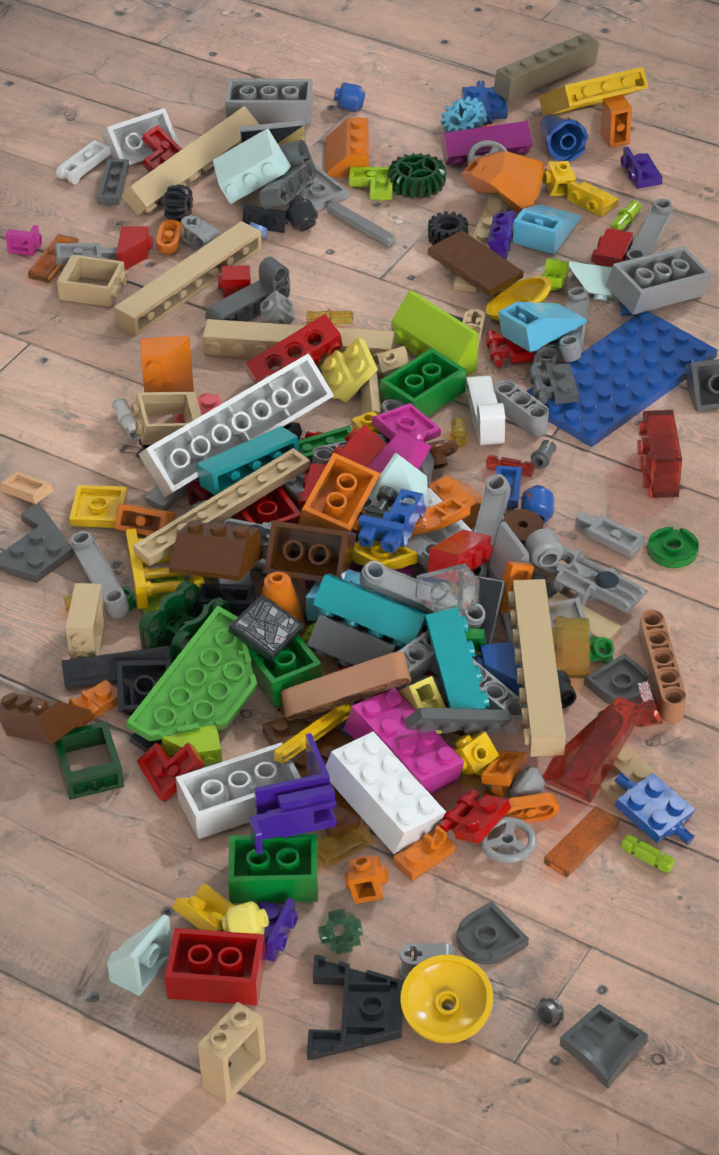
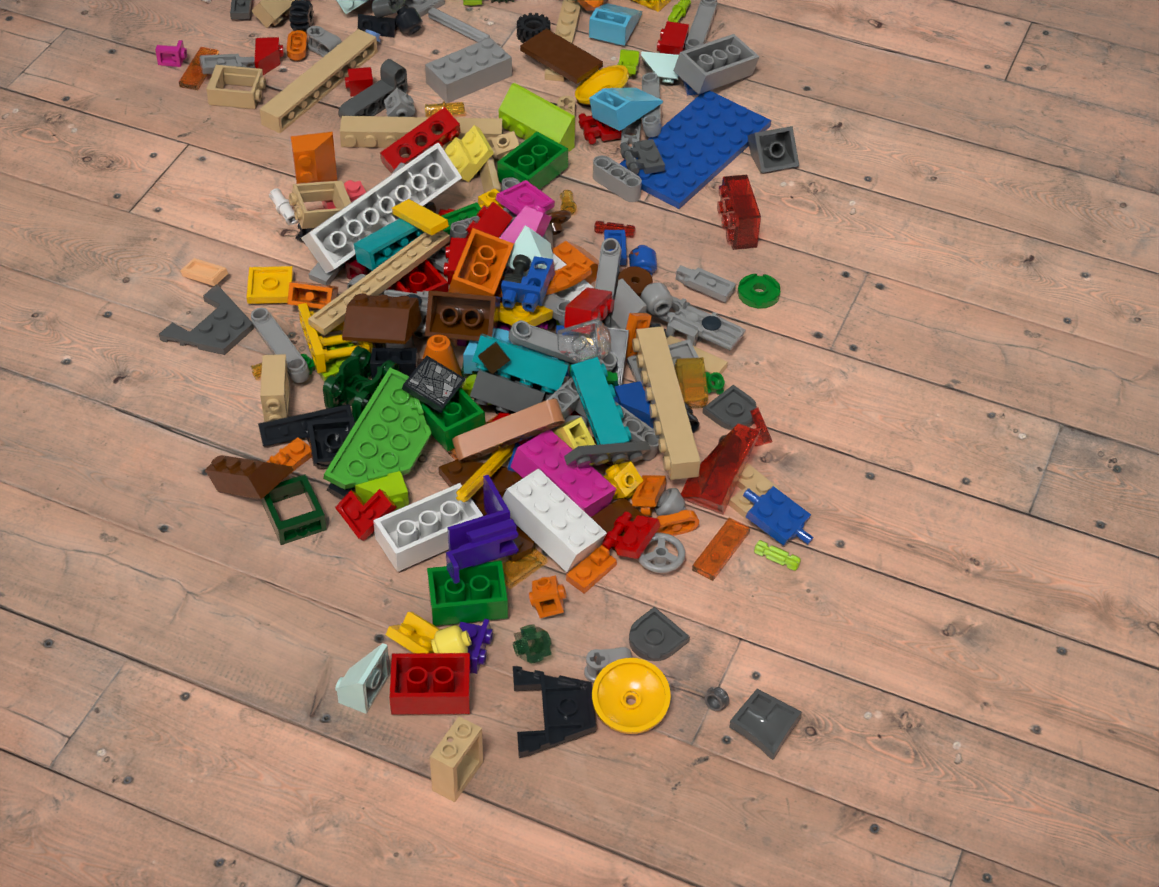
camera: 10 degrees left, 5 degrees up
(277, 437) = (420, 217): none -> yellow tile
(338, 601) = (494, 357): none -> dark brown tile
(364, 274) = (468, 70): none -> light grey brick
(485, 410) = (590, 187): white beam -> none
(501, 233) = (579, 28): dark purple bracket -> none
(542, 456) = (640, 219): dark grey pin -> none
(662, 666) = (766, 393): nougat beam -> none

